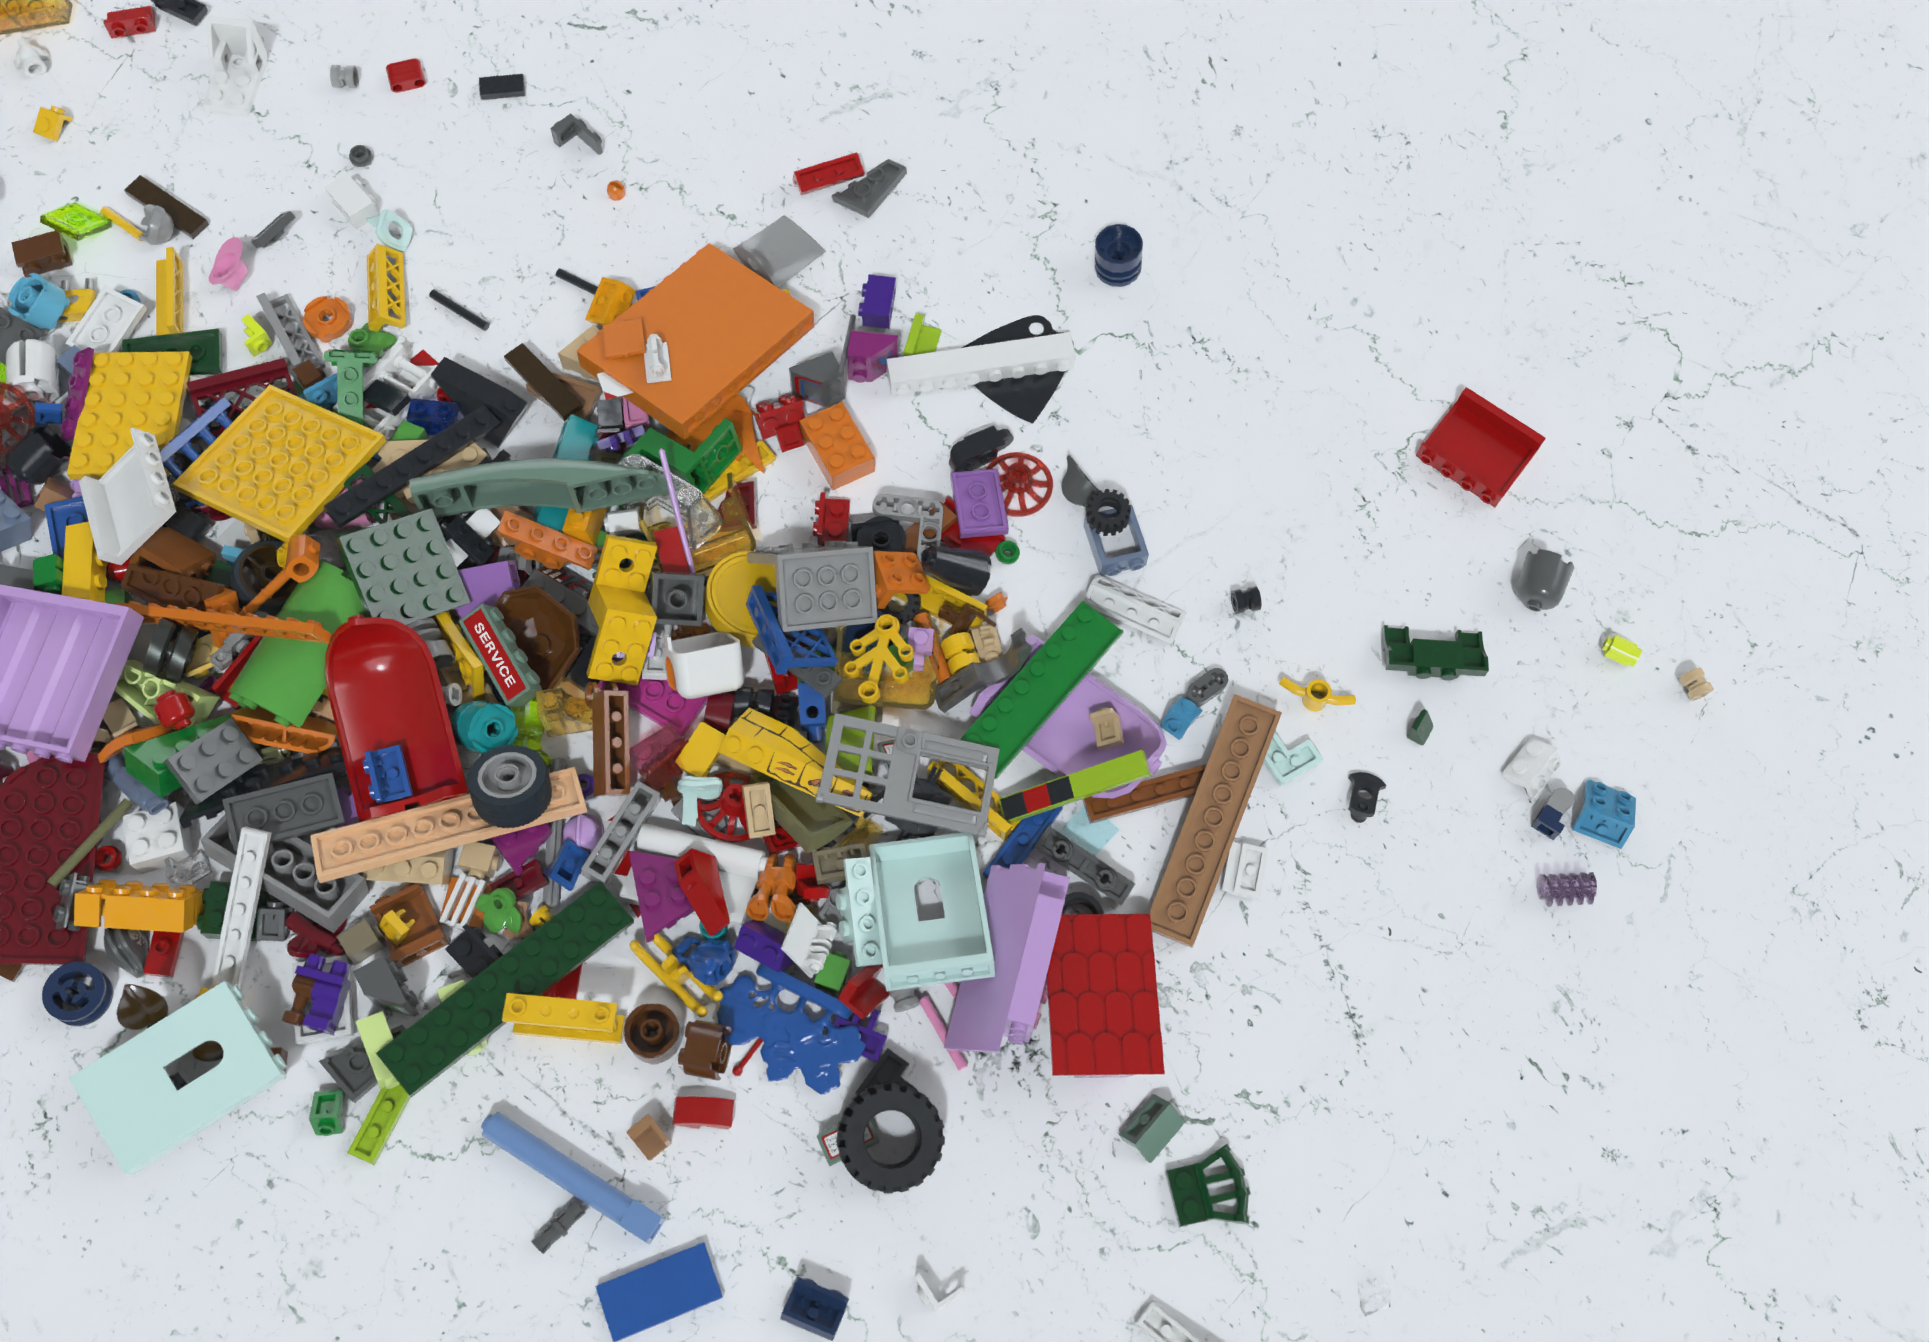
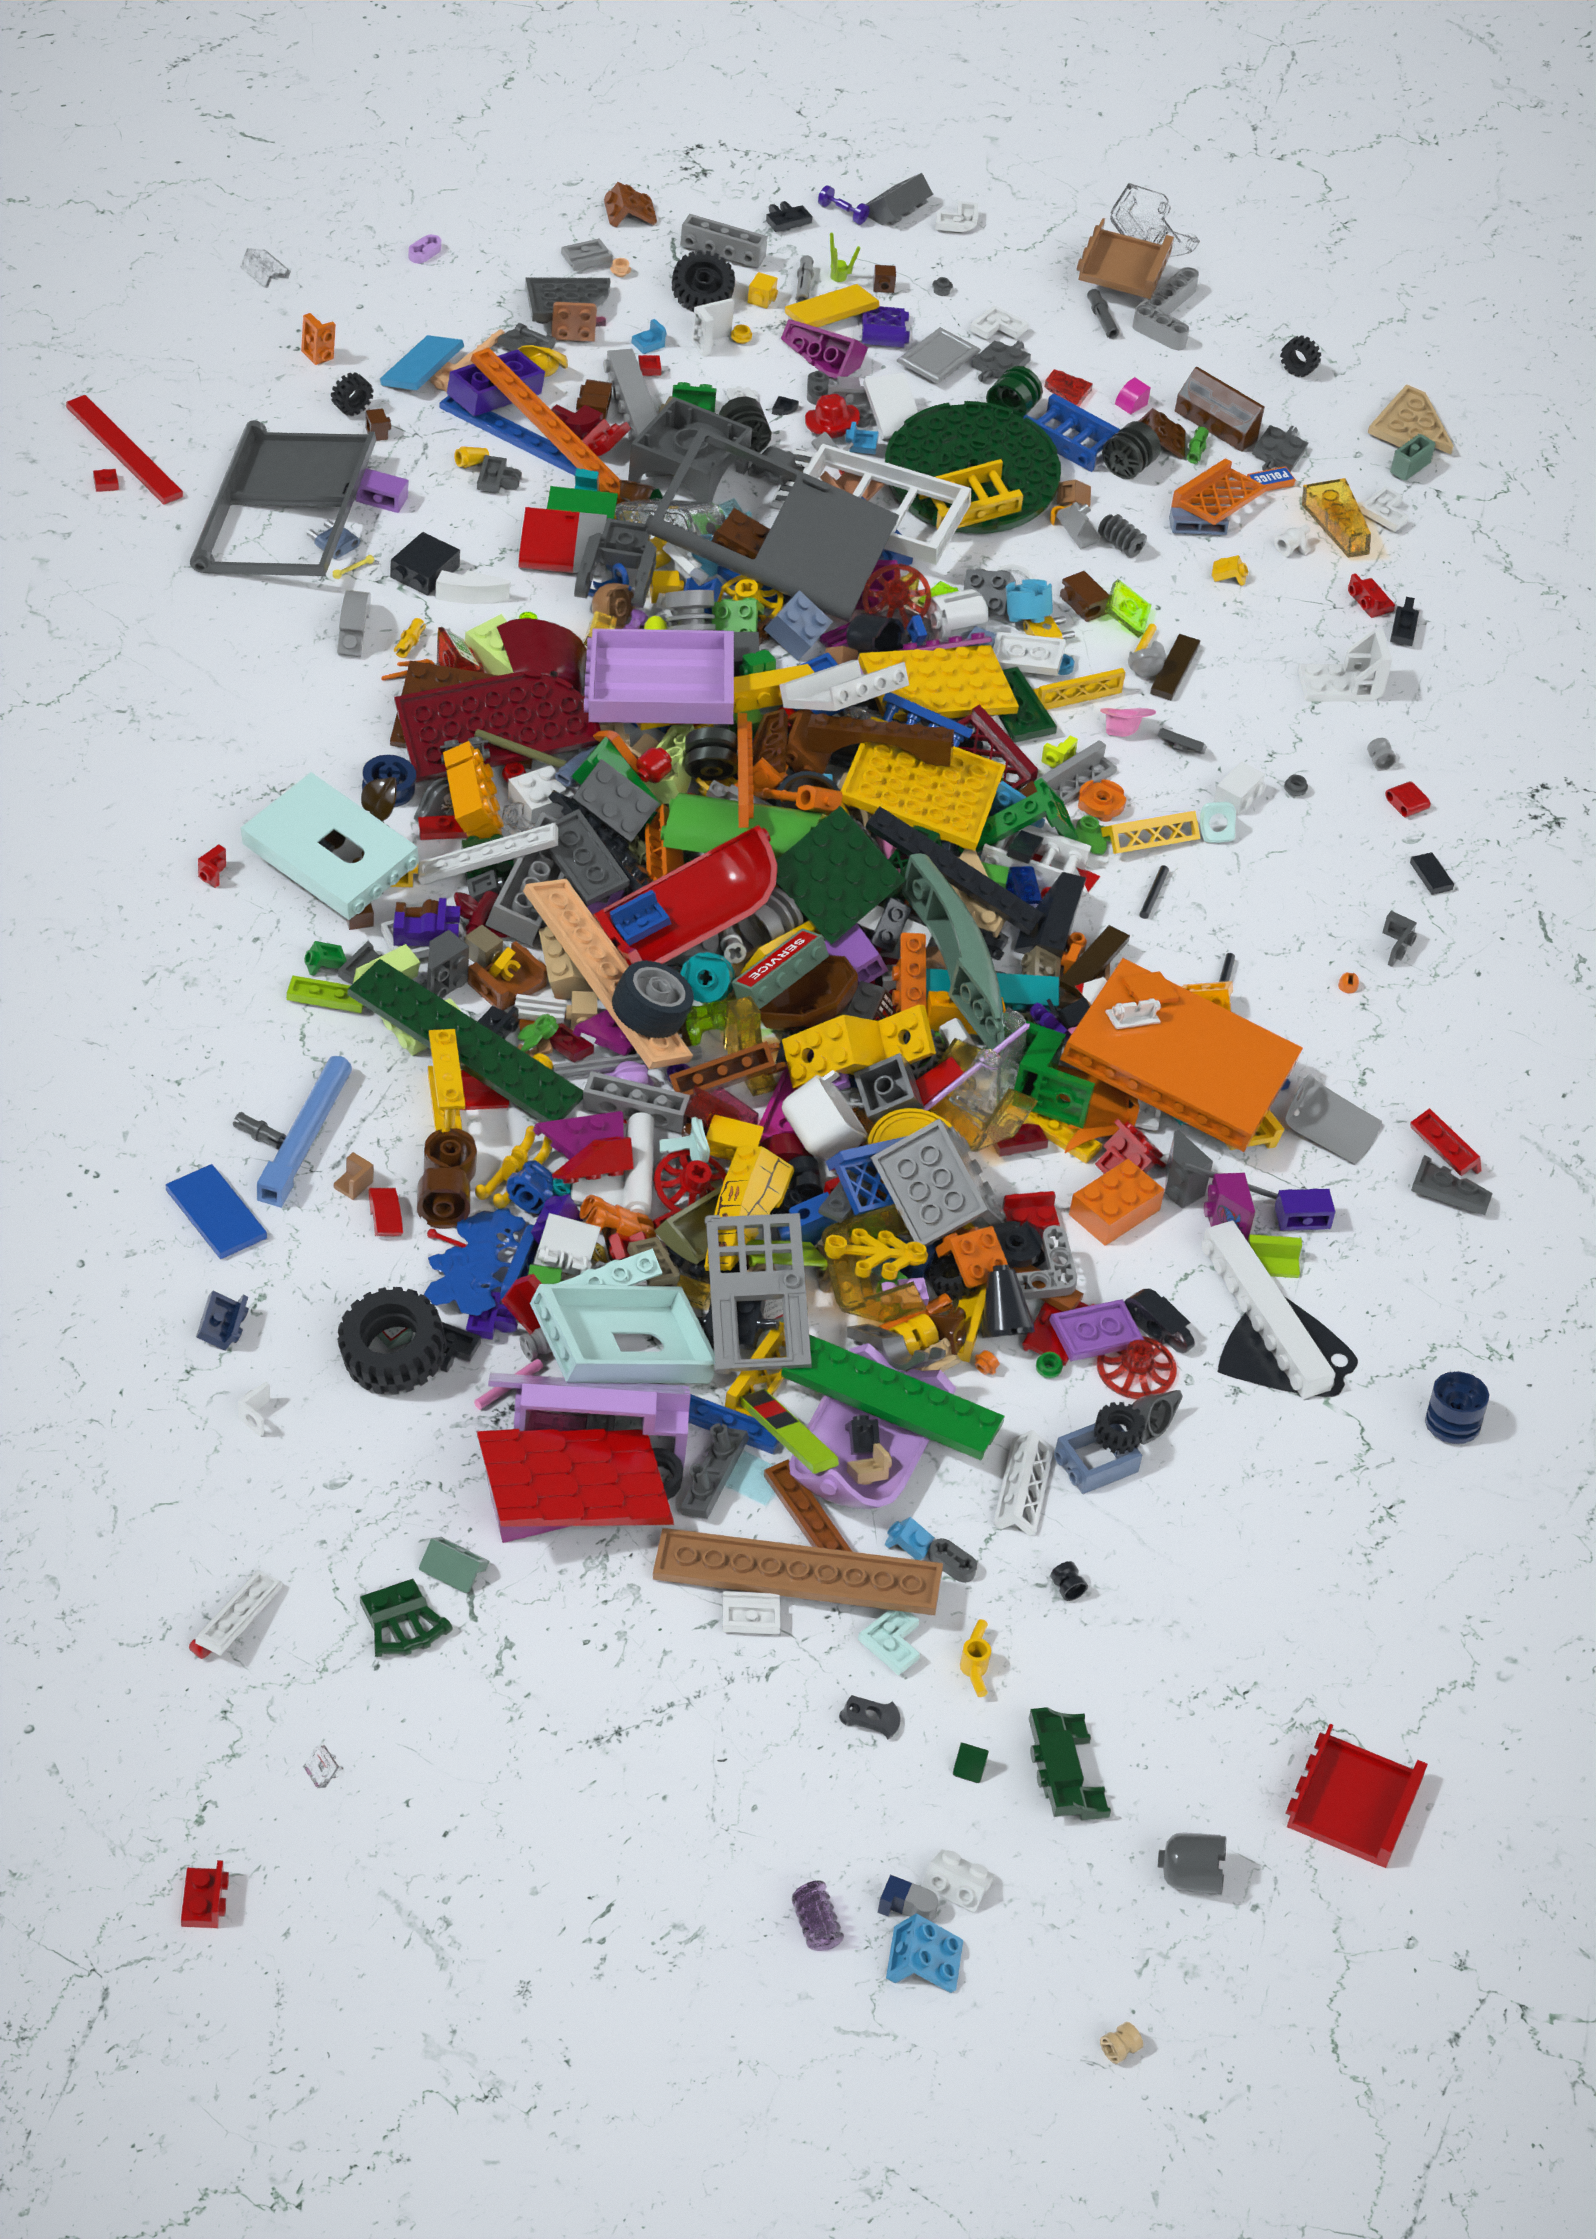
camera: 75 degrees right, 20 degrees down
(146, 1215) = (211, 865): none -> red bracket
(188, 525) = (929, 744): none -> reddish brown arch
(535, 402) = (1075, 947): none -> orange plate
(536, 432) = (1041, 963): none -> dark tan bracket
(567, 865) = (585, 1059): blue slope -> none
(758, 809) = (688, 1189): tan plate -> none
(1067, 725) = (863, 1434): none -> black bracket
(1621, 650) = (1138, 1960): neon yellow brick -> none

